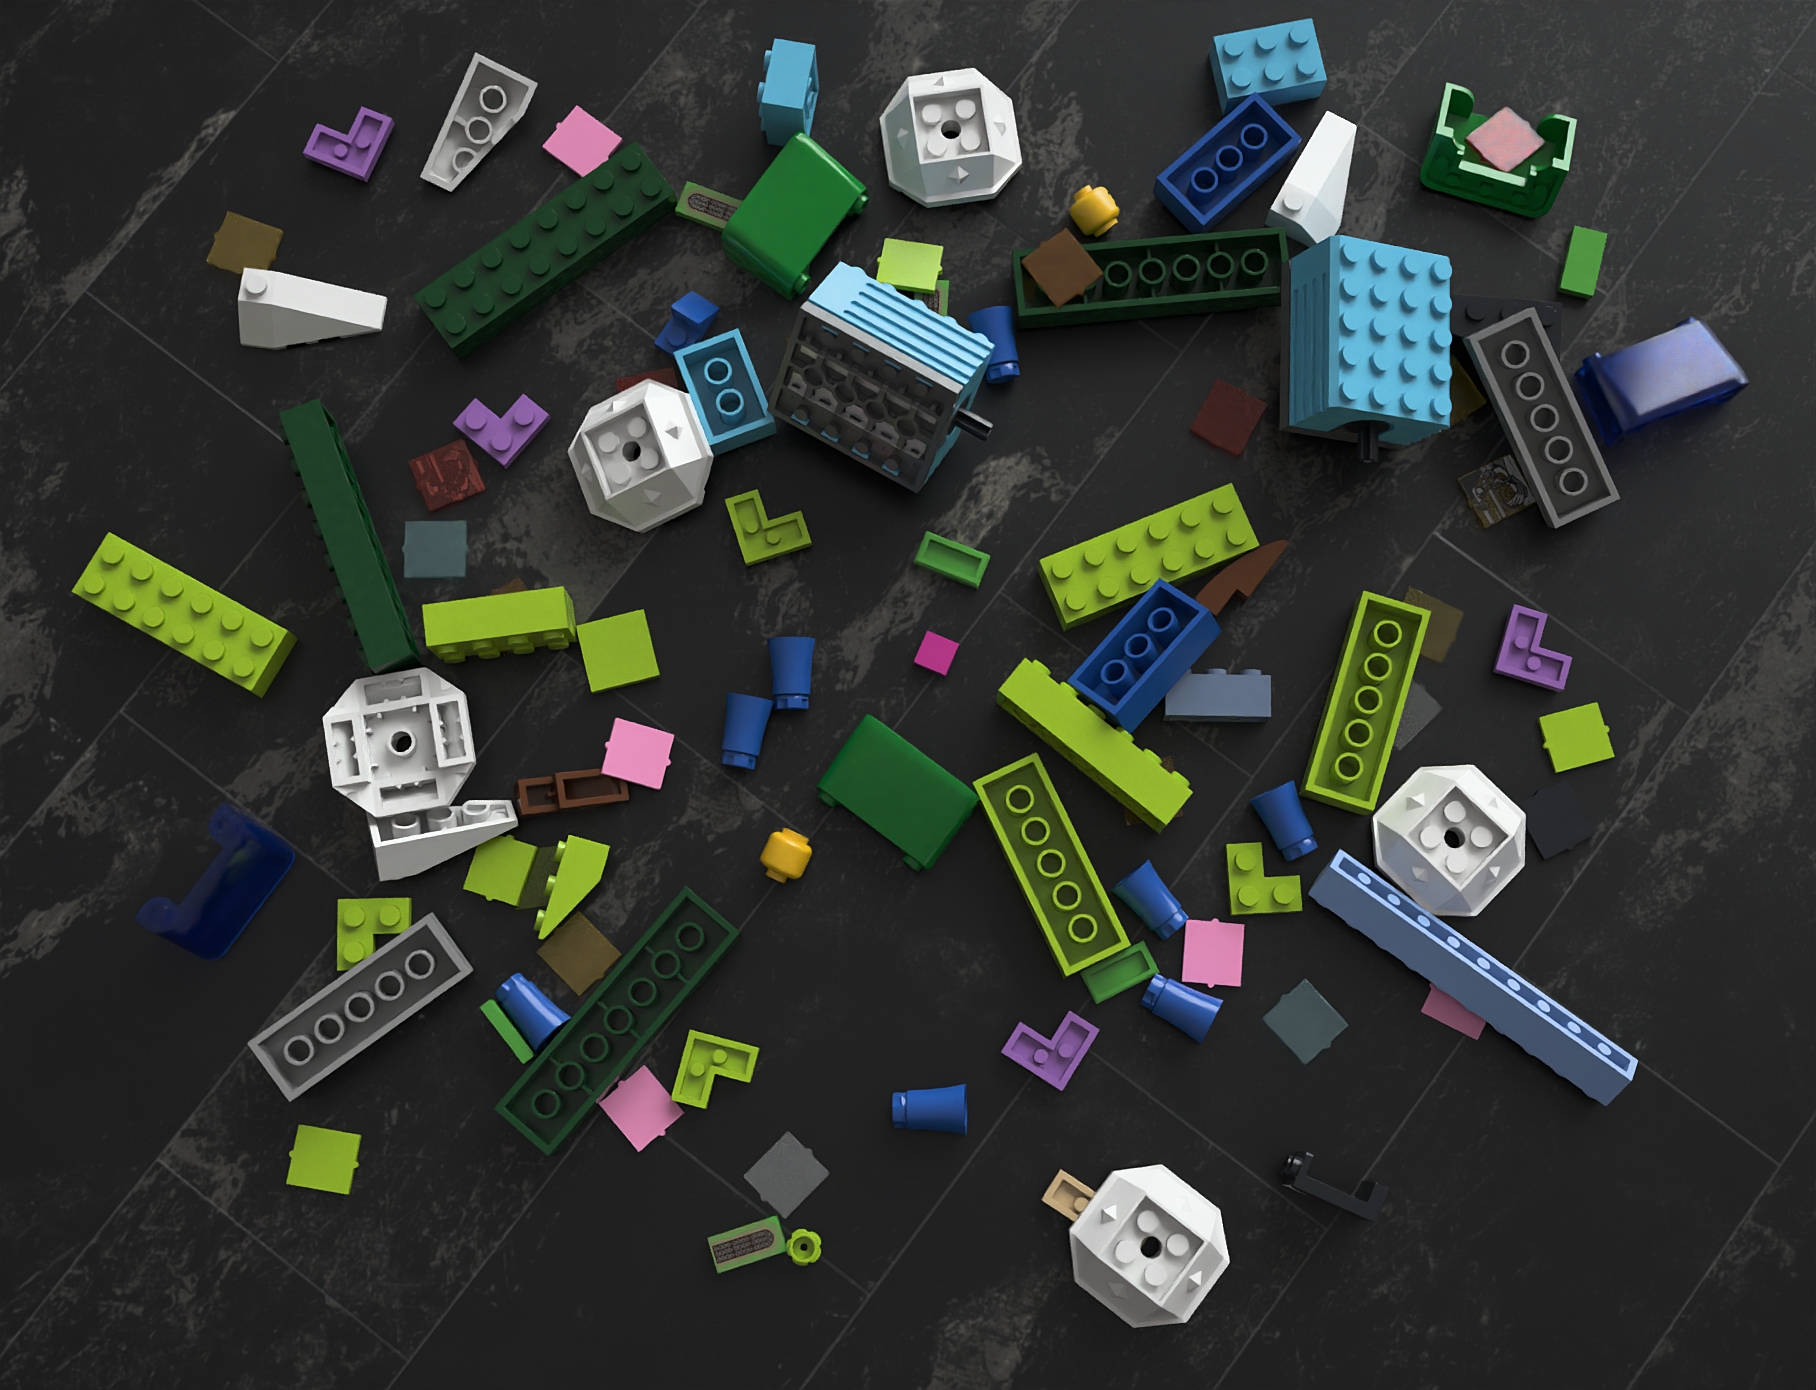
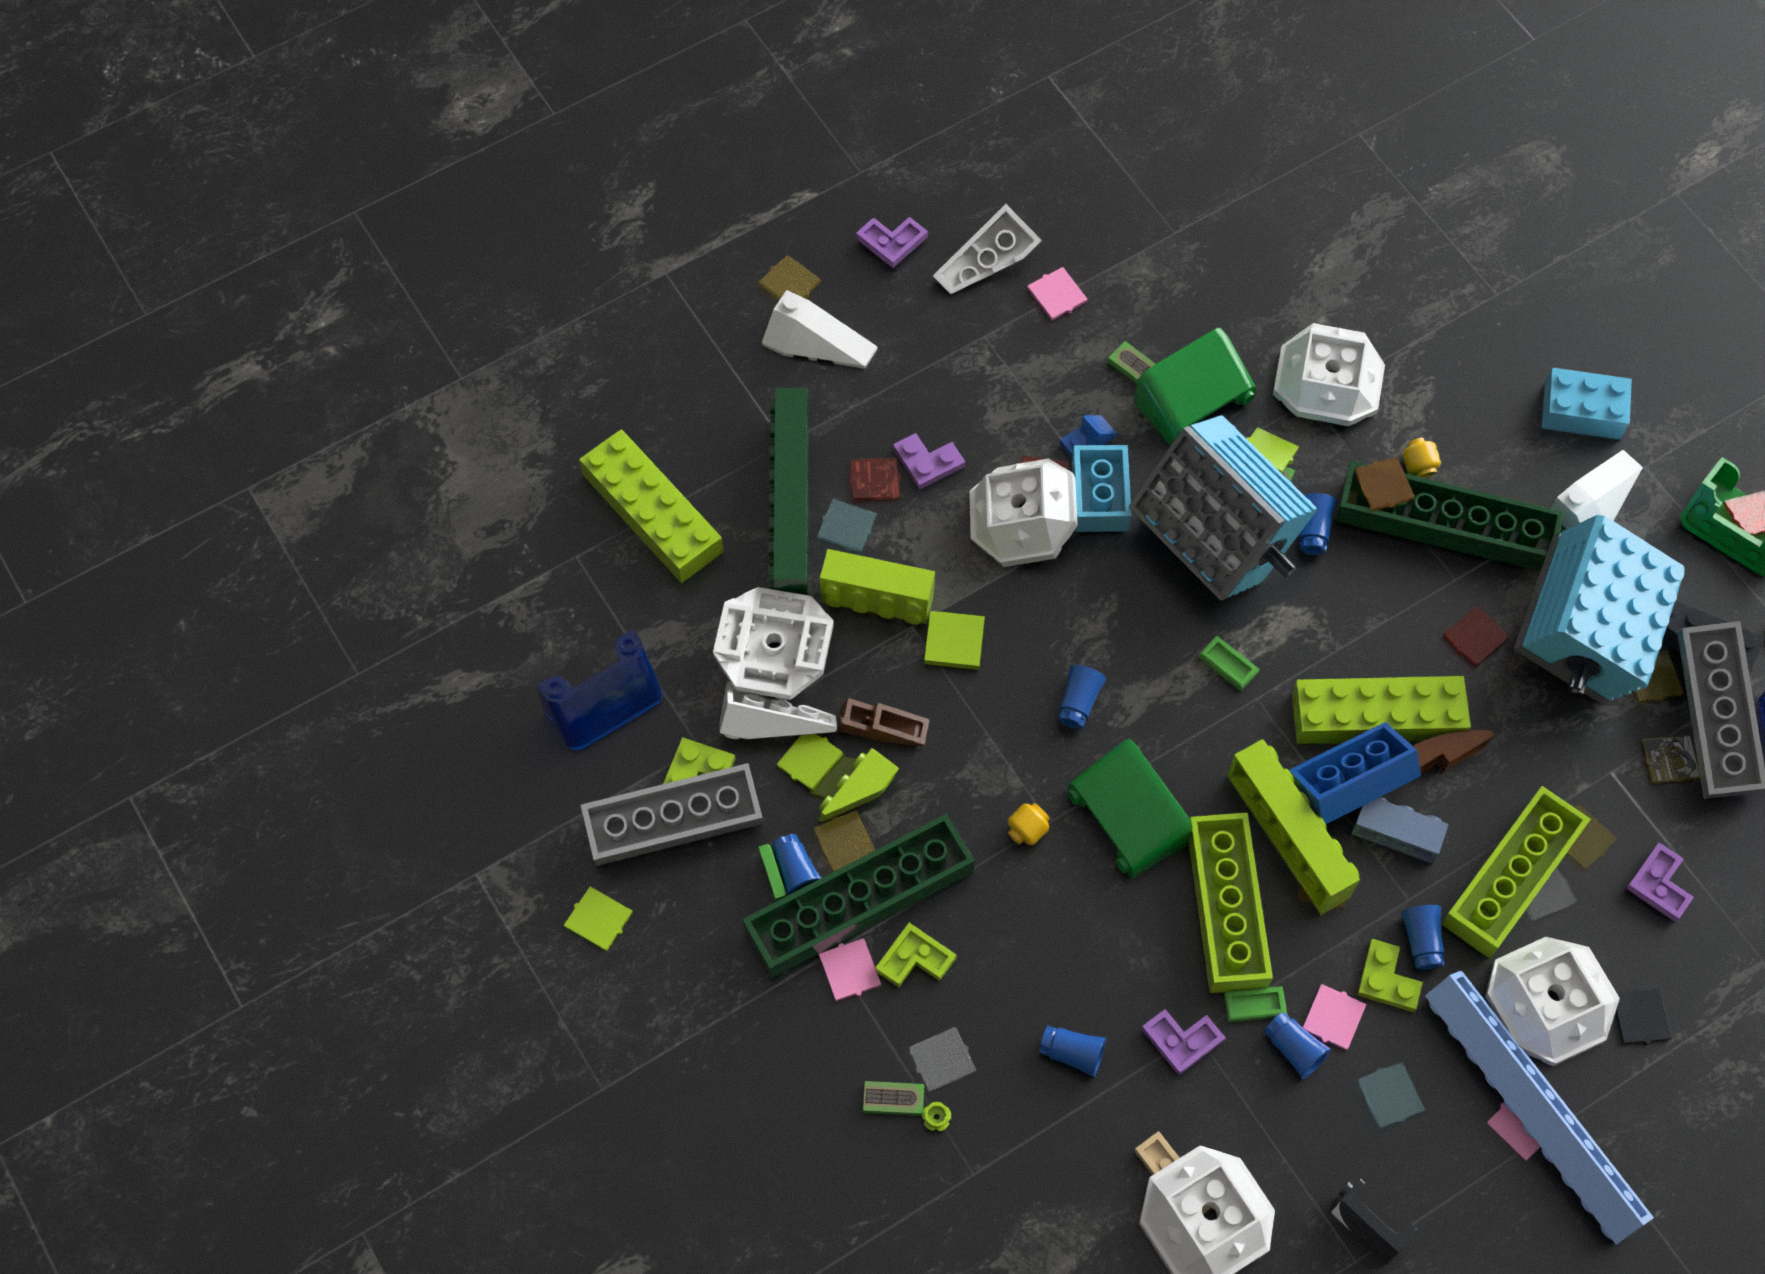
camera: 20 degrees right, 15 degrees down
(547, 250) = (1005, 352): dark green brick -> none
(637, 754) = (942, 714): bright pink piece -> none
(744, 729) = (1029, 723): blue plant -> none
(764, 538) = (1091, 598): lime plate -> none
(789, 90) = (1223, 299): medium azure brick -> none
(936, 654) = (1193, 724): dark pink tile -> none
(1151, 900) = (1298, 956): blue plant -> none
(1226, 165) = (1533, 458): blue brick -> none
(1575, 737) = (1678, 961): lime piece -> none

